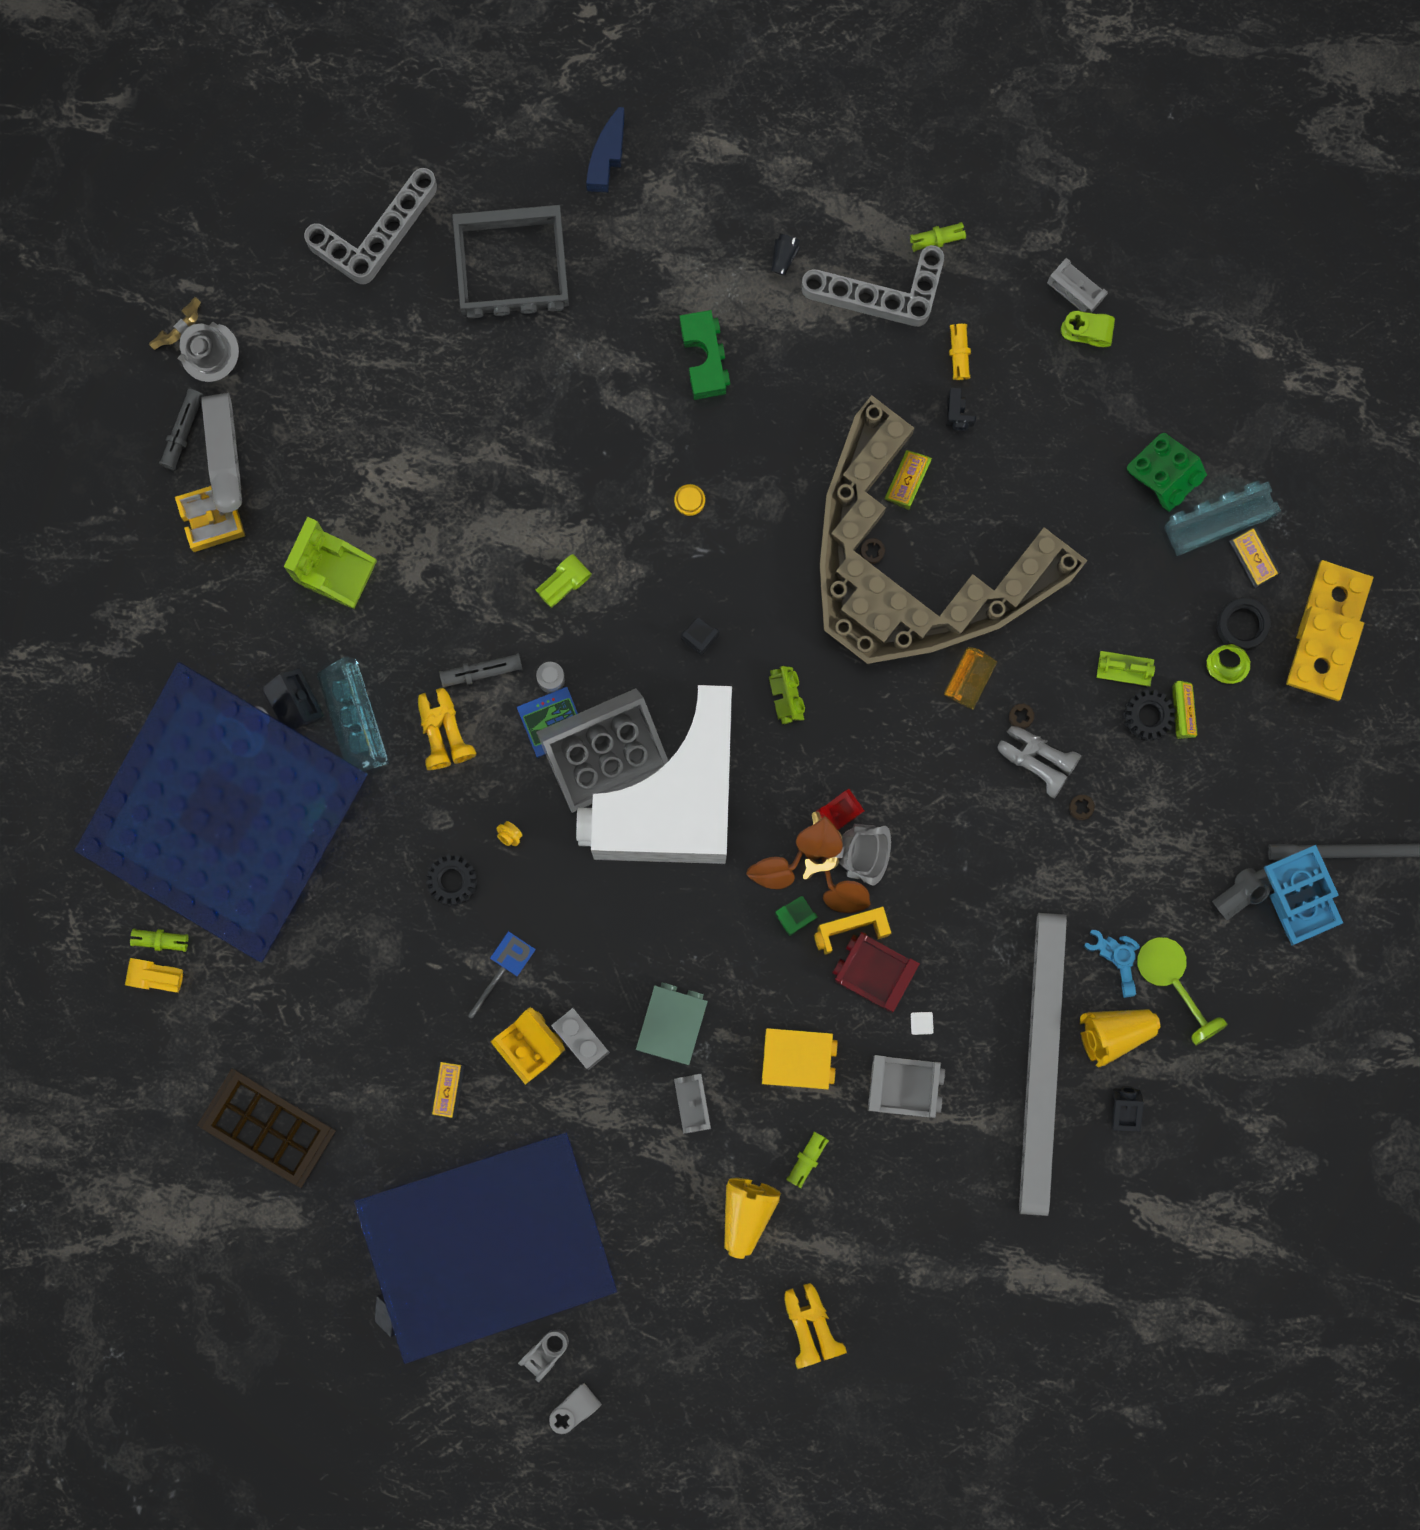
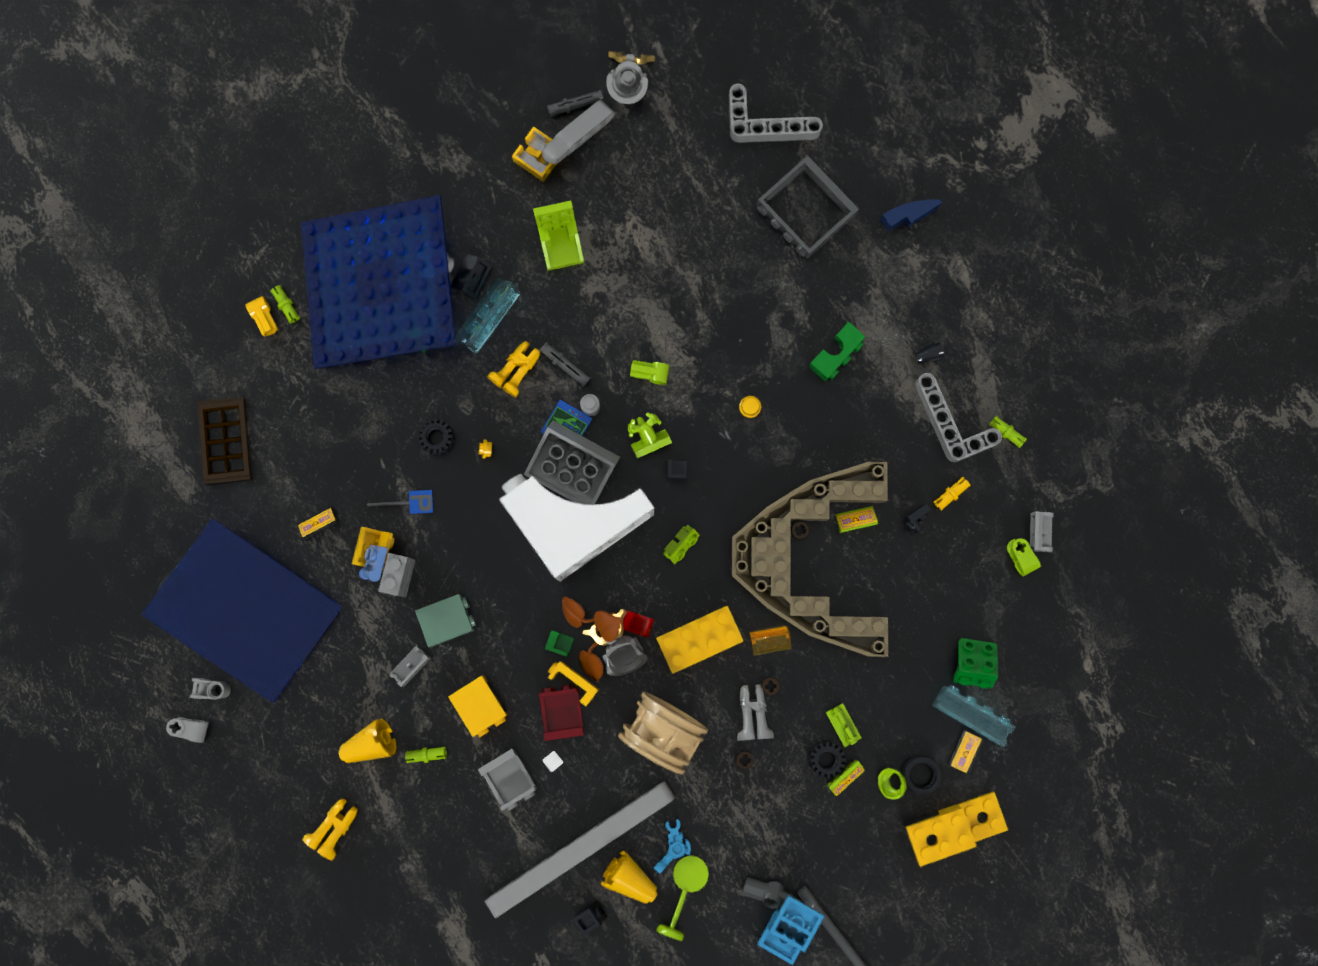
camera: 55 degrees right, 0 degrees up
(540, 1048) = (374, 563): none -> medium blue plate
(642, 639) = (649, 440): none -> lime piece
(910, 754) = (699, 639): none -> yellow brick
(986, 869) = (663, 733): none -> tan wheel

